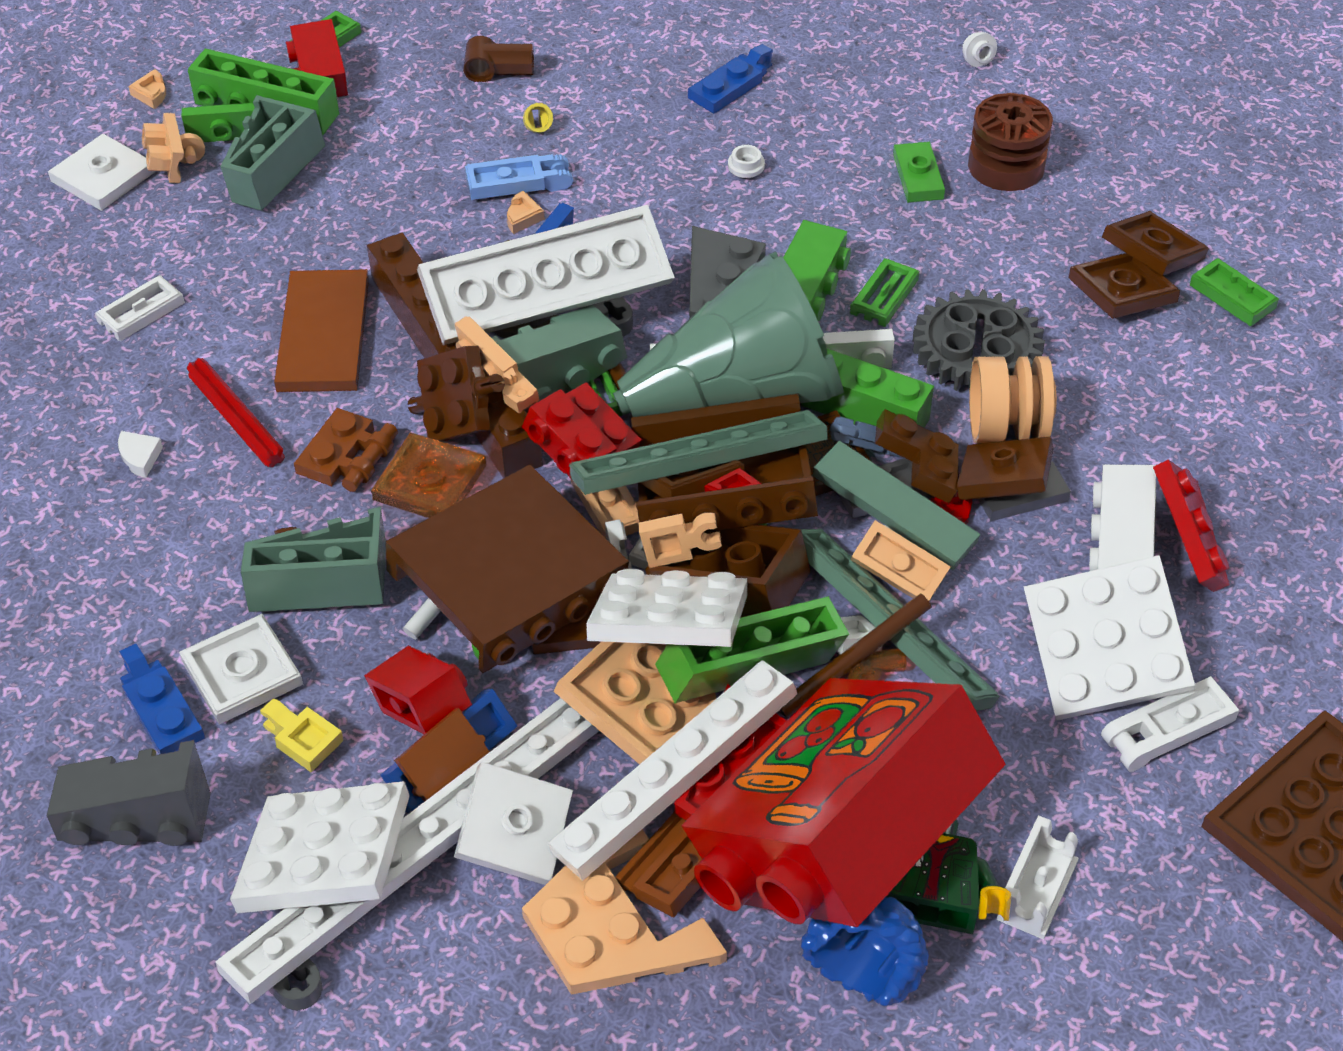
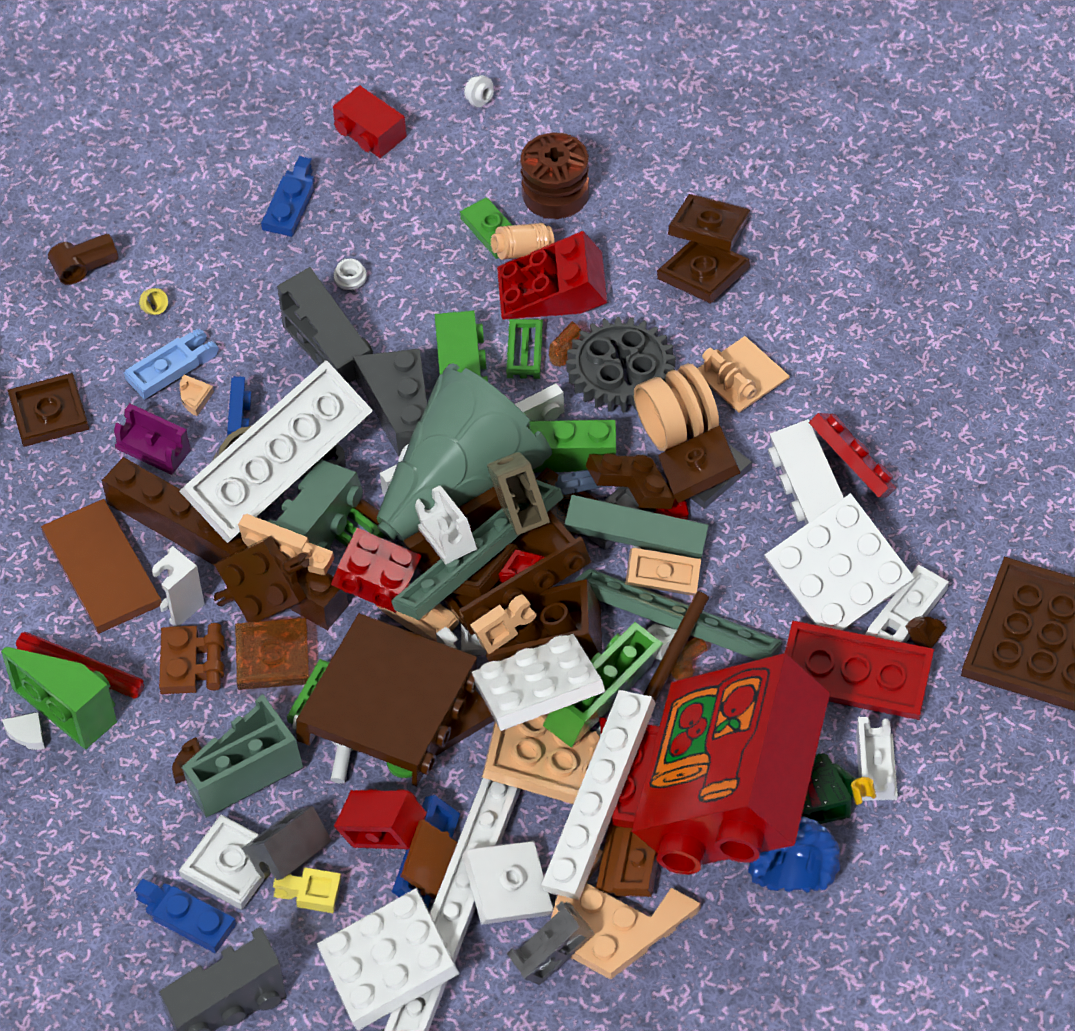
camera: 25 degrees left, 5 degrees up
(191, 428) = (63, 693): none -> bright green slope
(304, 673) = (287, 843): none -> flat silver hinge
(370, 371) = (181, 587): none -> white hinge
(375, 175) = (48, 409): none -> reddish brown tile
(447, 228) = (152, 439): none -> magenta hinge
(517, 920) = (551, 944): none -> flat silver hinge
(674, 415) = (445, 527): none -> white hinge
(680, 188) = (319, 323): none -> dark grey wedge
(768, 400) = (516, 485): none -> dark tan torso
(850, 38) = (369, 121): none -> red brick
(916, 304) = (562, 343): none -> clear orange arm
(940, 189) = (520, 240): none -> light nougat head
(955, 238) = (553, 280): none -> red slope
(1076, 765) = (863, 668): none -> red plate
(1108, 399) = (741, 373): none -> light nougat hinge
(1180, 756) = (925, 630): none -> reddish brown tile
(1234, 292) = (787, 242): bright green plate -> none

